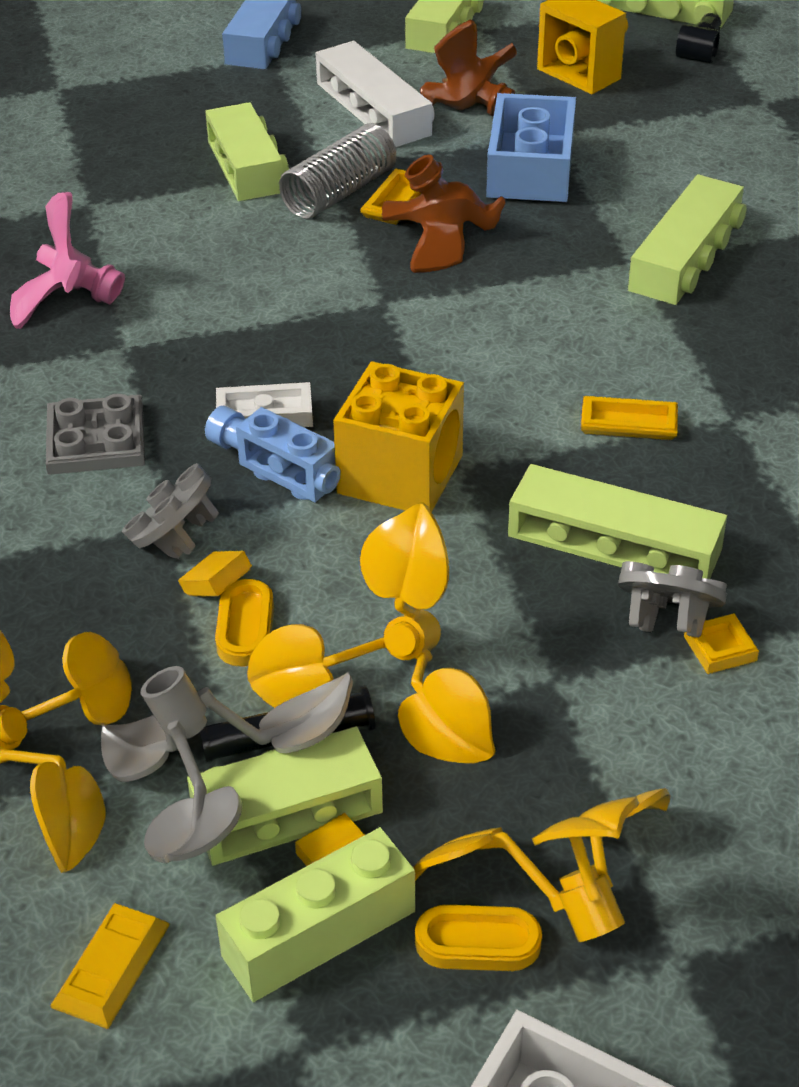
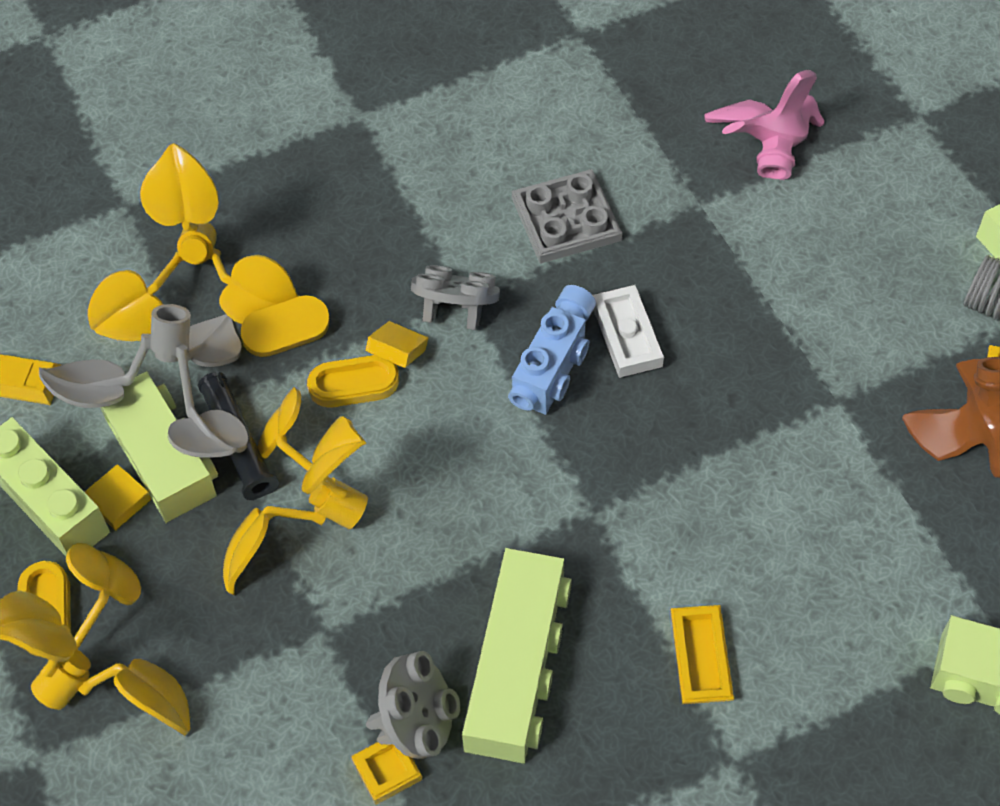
camera: 80 degrees right, 15 degrees up
(142, 653) = (285, 326): none -> yellow tile
(399, 436) = (574, 440): yellow brick -> none

